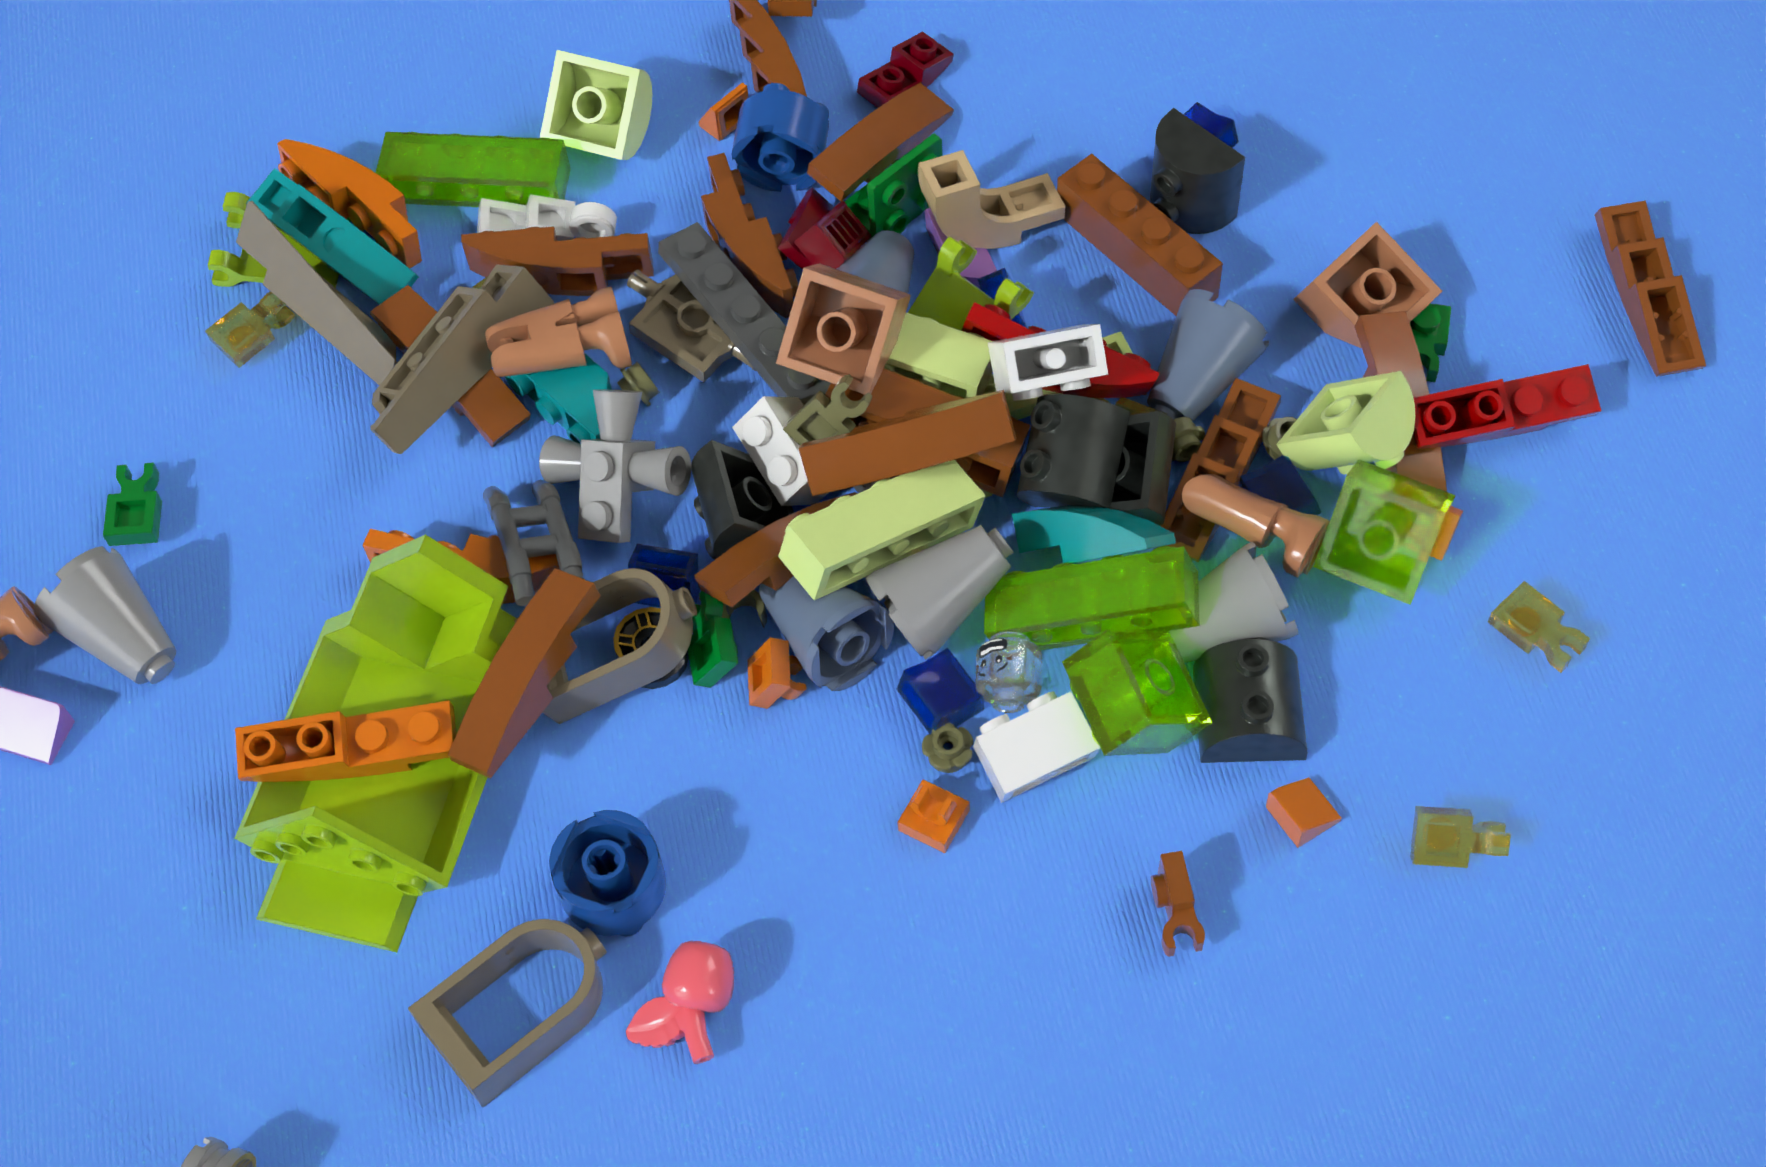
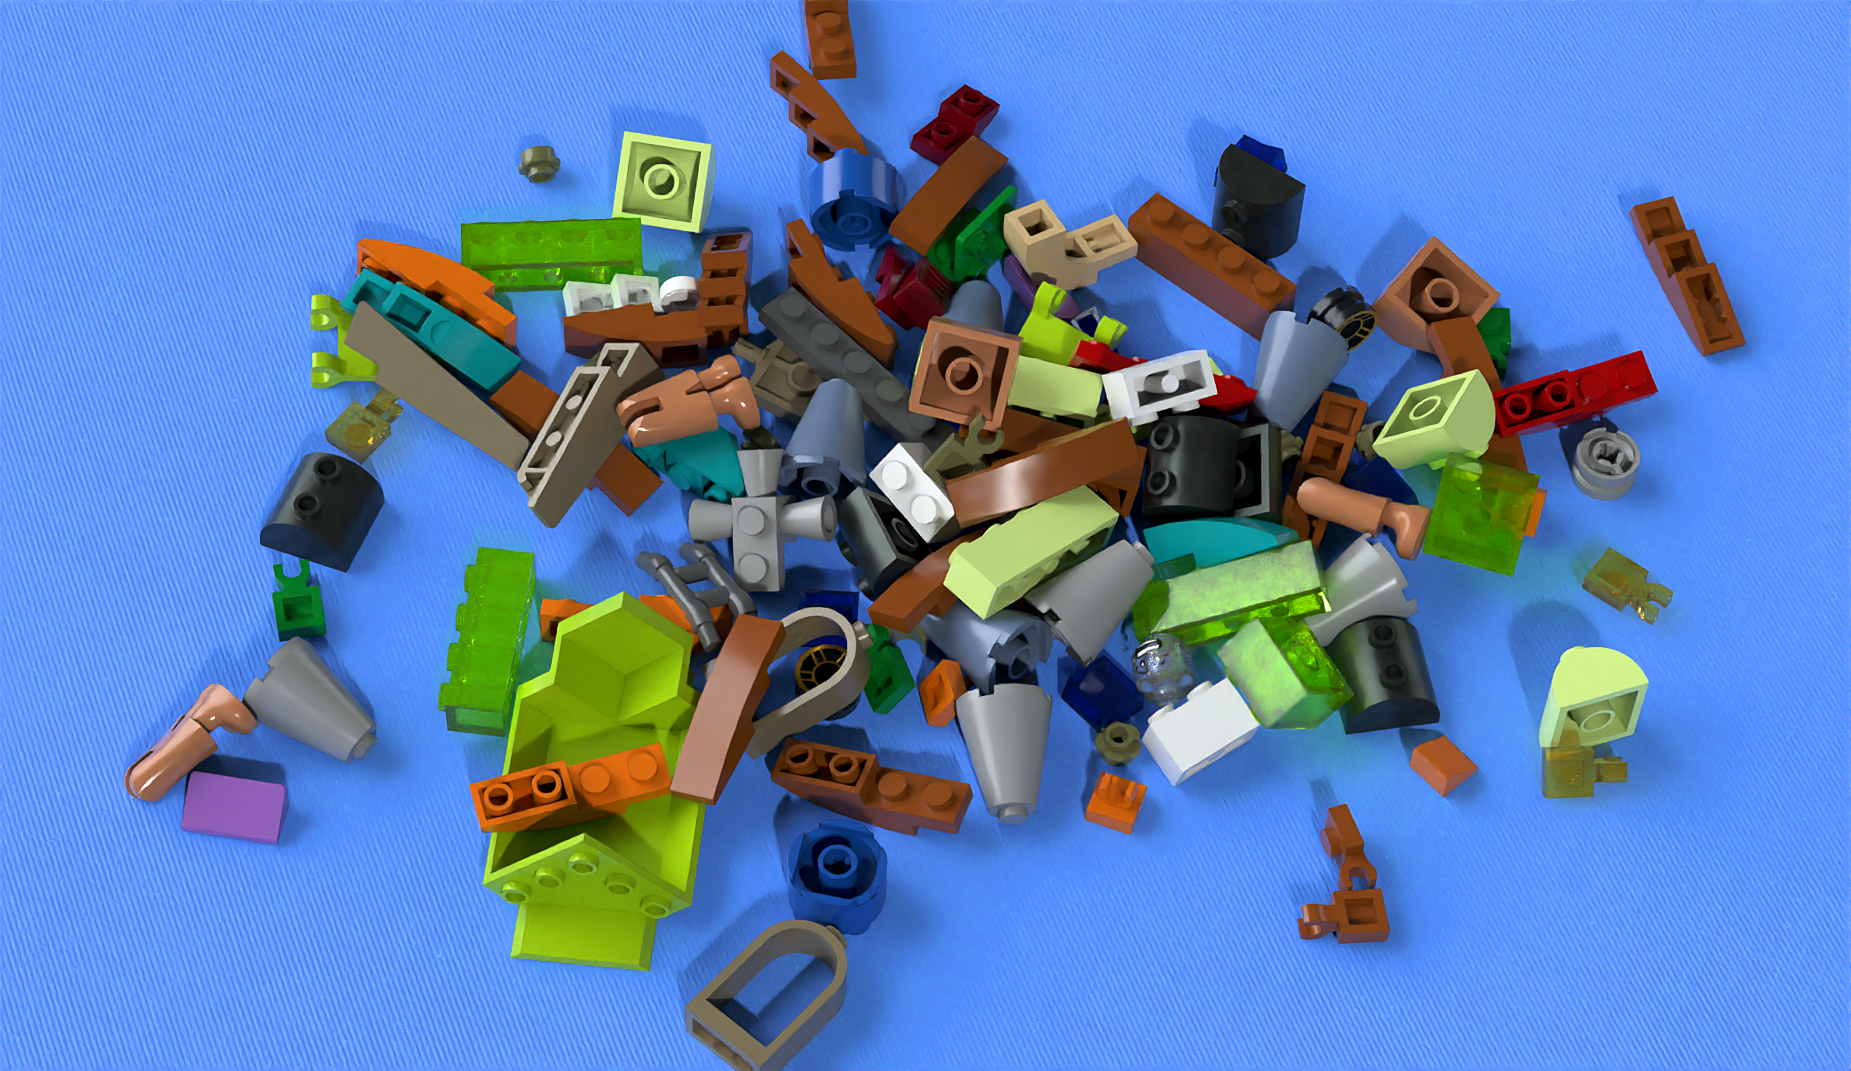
camera: 15 degrees left, 5 degrees down
(186, 414) = (324, 511): none -> pearl dark grey brick
(312, 567) = (489, 642): none -> clear neon green brick
(484, 79) = (539, 164): none -> olive plate
(634, 209) = (725, 279): none -> dark orange slope
(667, 775) = (865, 791): none -> dark orange slope
(694, 982) = (934, 963): coral piece -> none
(696, 393) = (827, 446): none -> sand blue cone
(723, 116) = (788, 179): orange slope -> none
(822, 743) = (1007, 746): none -> light grey cone
(1173, 981) = (1353, 914): none -> dark orange plate
(1271, 301) = (1347, 315): none -> black wheel
(1479, 756) = (1592, 698): none -> yellowish green brick
(1521, 498) = (1605, 464): none -> light grey wheel

